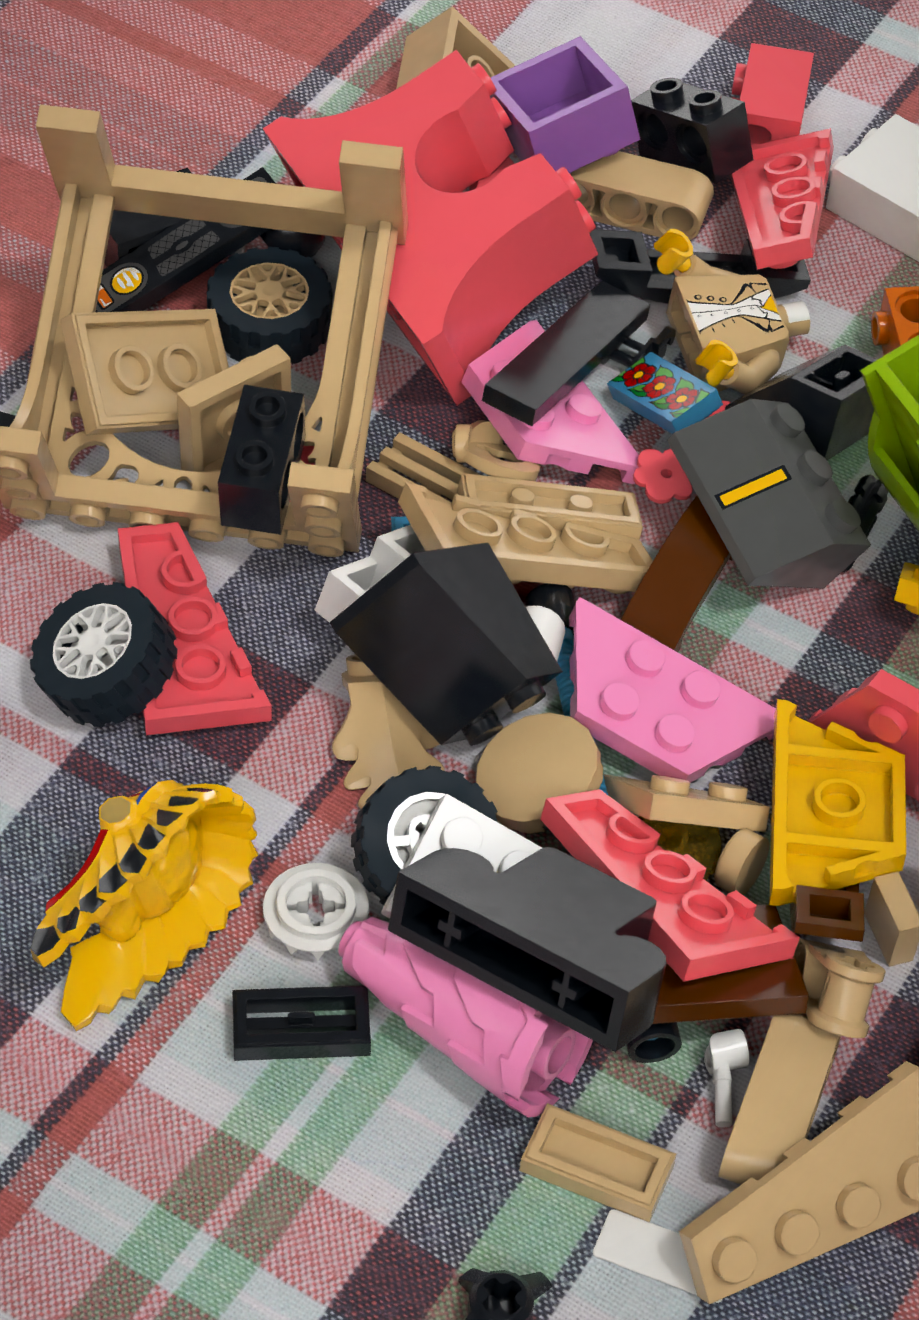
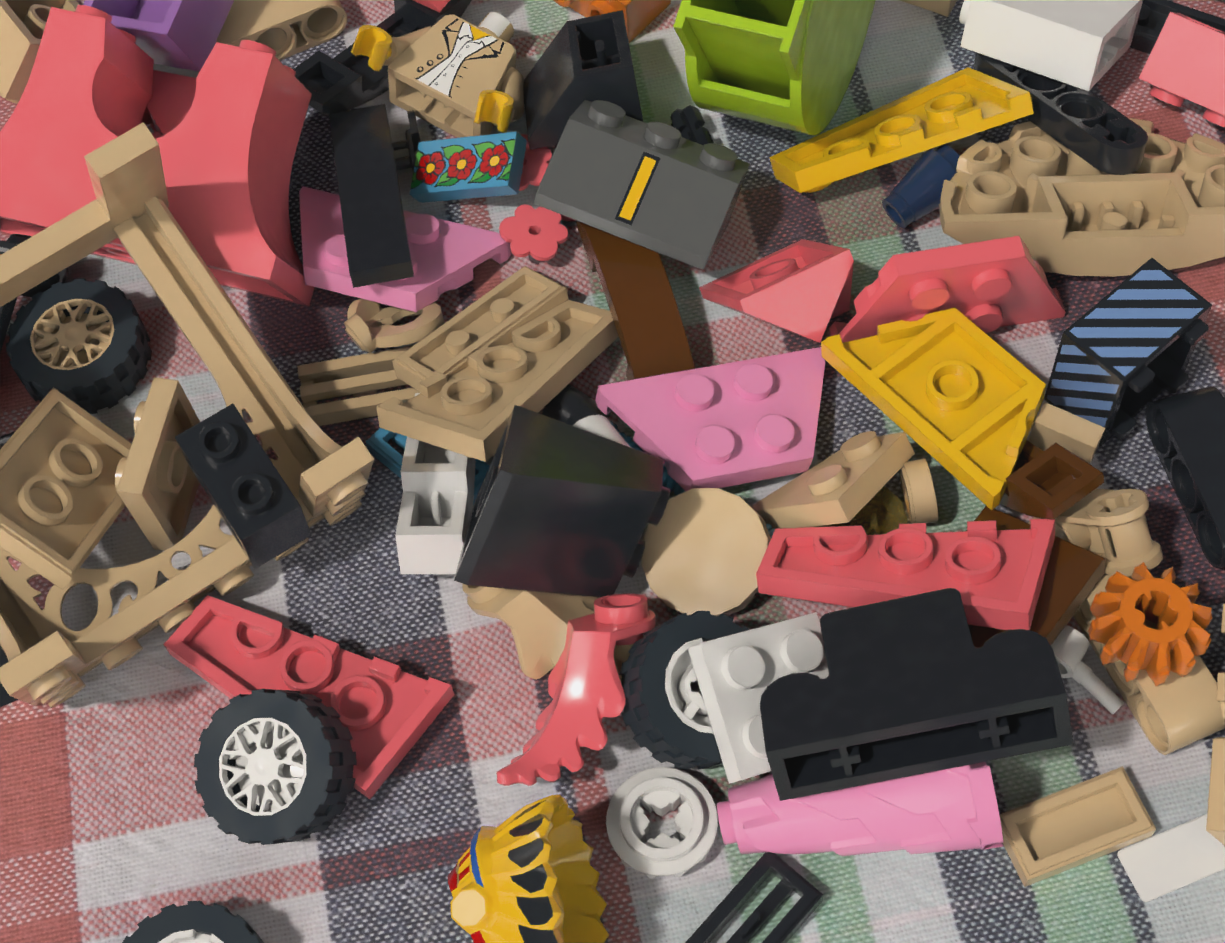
camera: 35 degrees left, 10 degrees up
(351, 777) = (582, 689): none -> coral plant
(786, 1058) = (1178, 622): none -> orange gear
(802, 659) = (790, 288): none -> coral slope

